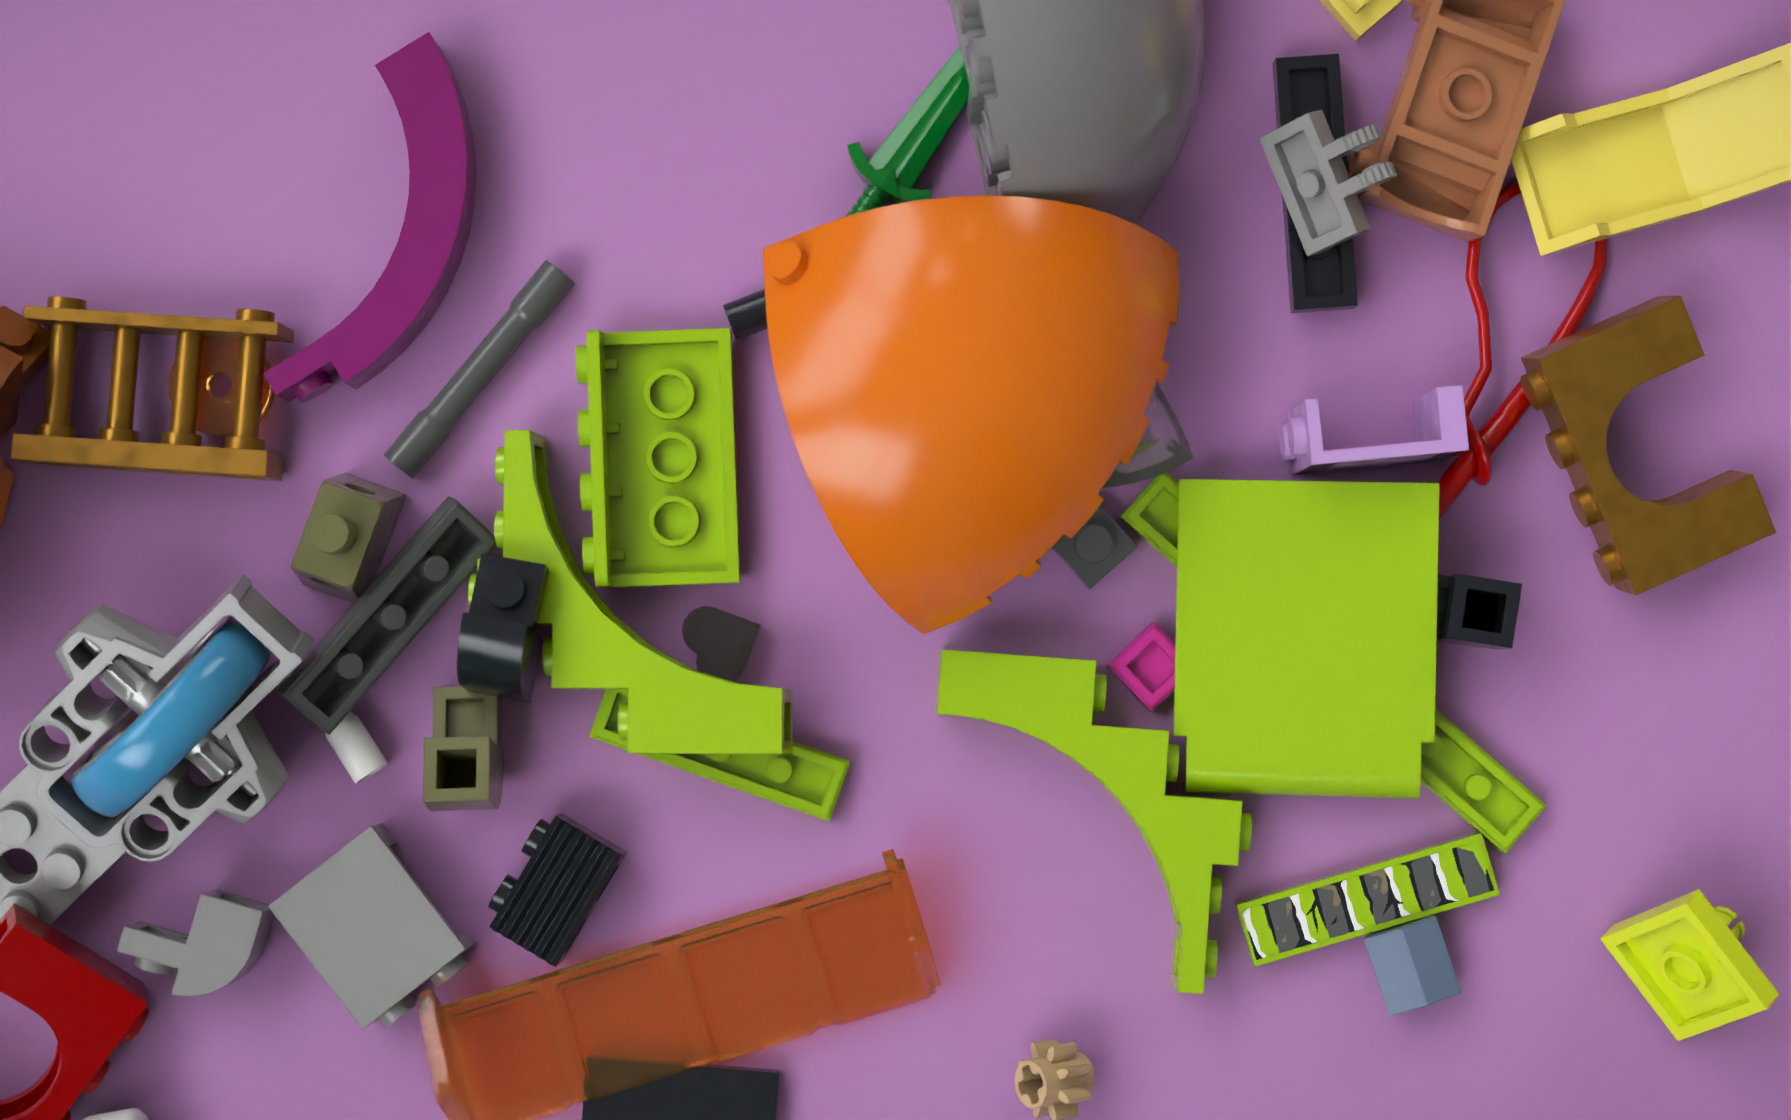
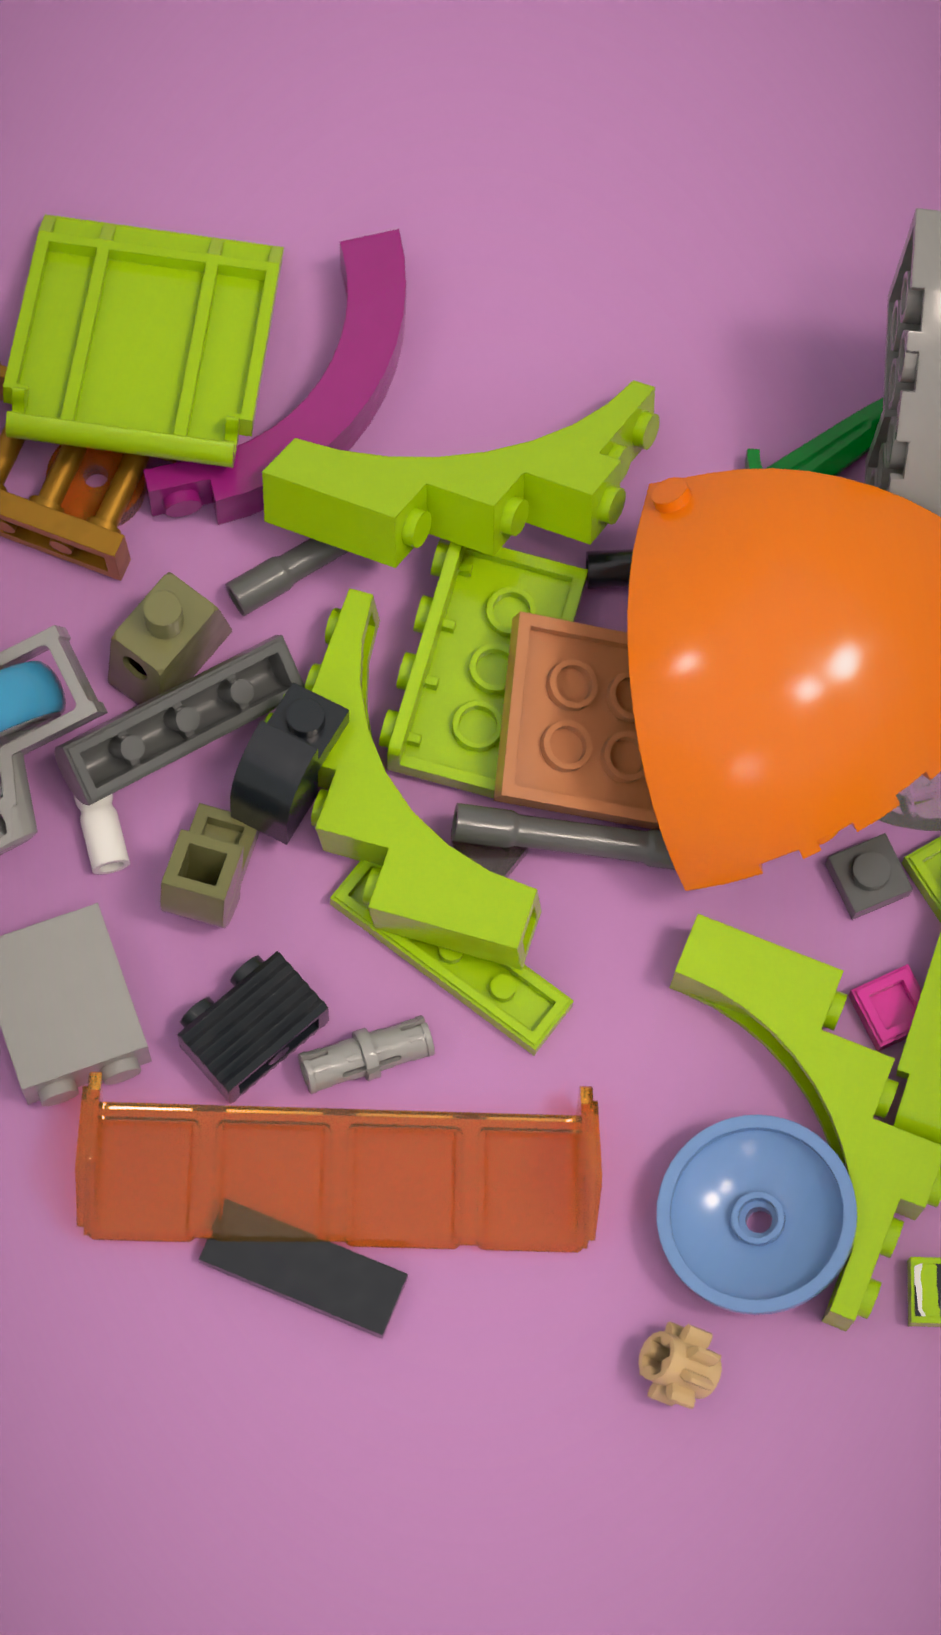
camera: 15 degrees right, 15 degrees down
(213, 235) = (141, 340): none -> lime piece
(515, 340) = (471, 499): none -> lime arch
(672, 878) = (366, 1054): none -> light grey pin
(736, 619) = (508, 829): none -> dark grey piece
(753, 497) = (571, 724): none -> nougat plate
(1074, 966) = (746, 1169): none -> medium blue dish

